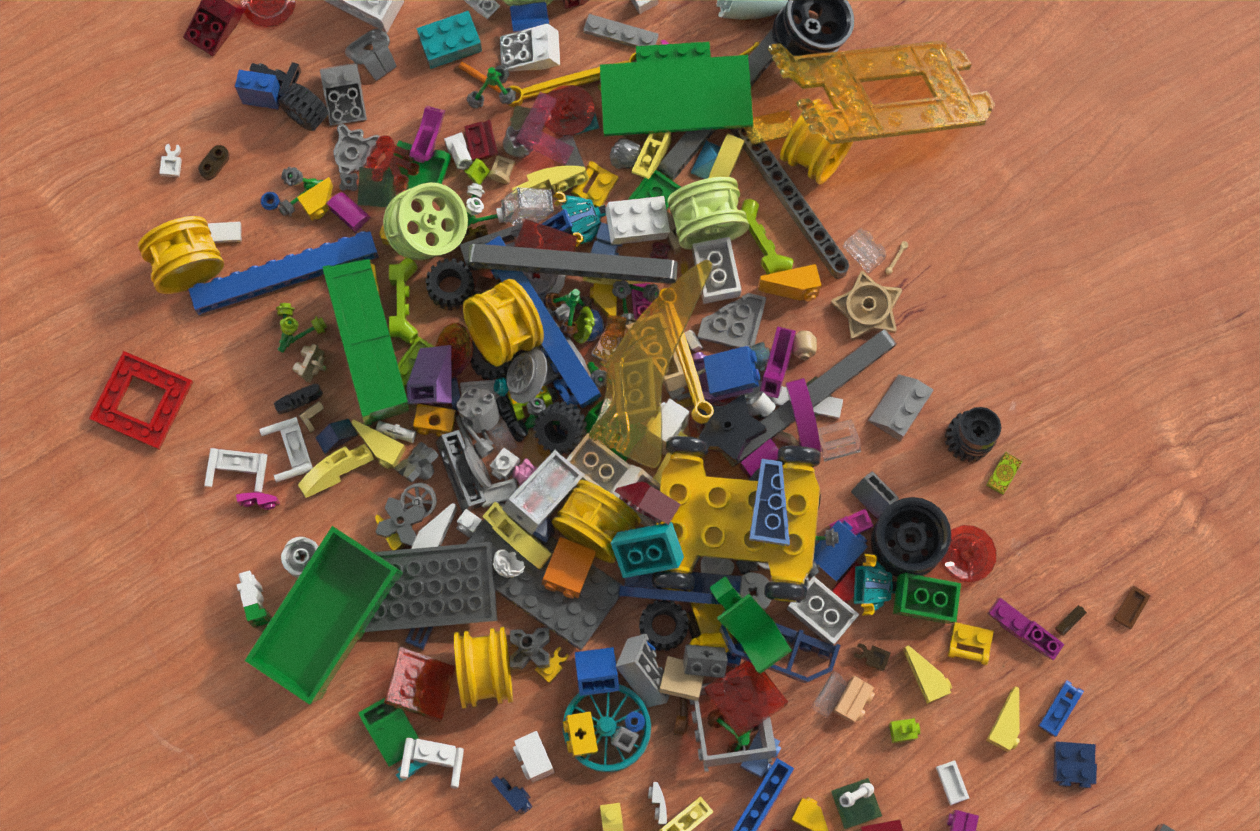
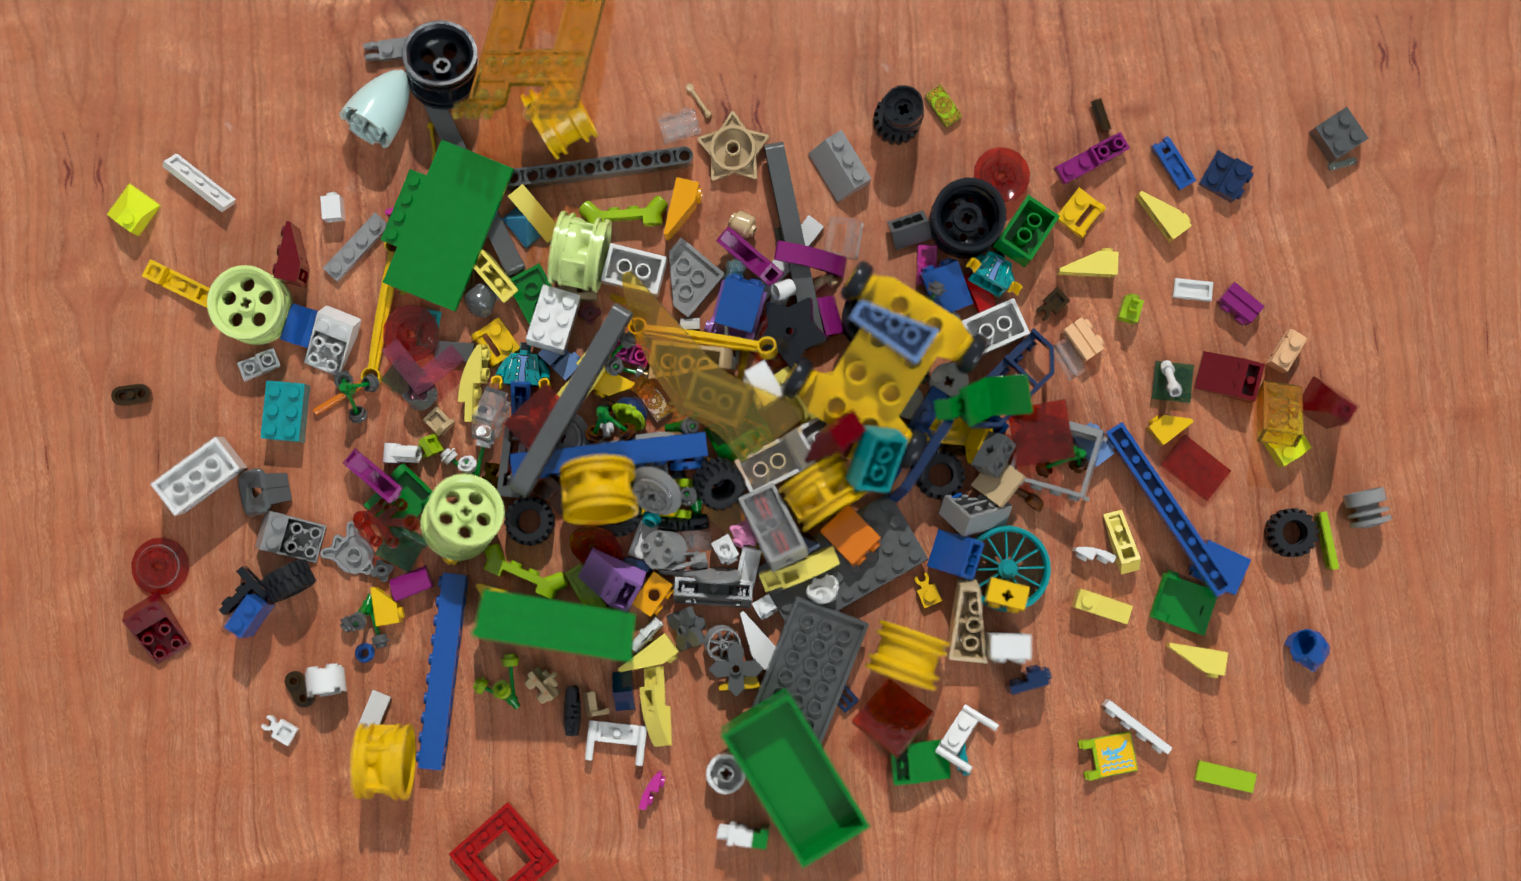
camera: 60 degrees left, 10 degrees up
(230, 178) = (325, 681): none -> white brick
(237, 462) = (606, 792): white plate -> none
(481, 140) = (401, 427): dark red plate -> none
(530, 648) = (900, 593): dark grey plant -> none
(537, 711) = (967, 624): none -> tan wedge
(624, 739) = (1028, 559): light grey slope -> none
(639, 726) = (1012, 537): blue plate -> none
(770, 127) = (520, 151): clear yellow piece -> none
(1132, 607) = (1114, 56): reddish brown tile -> none

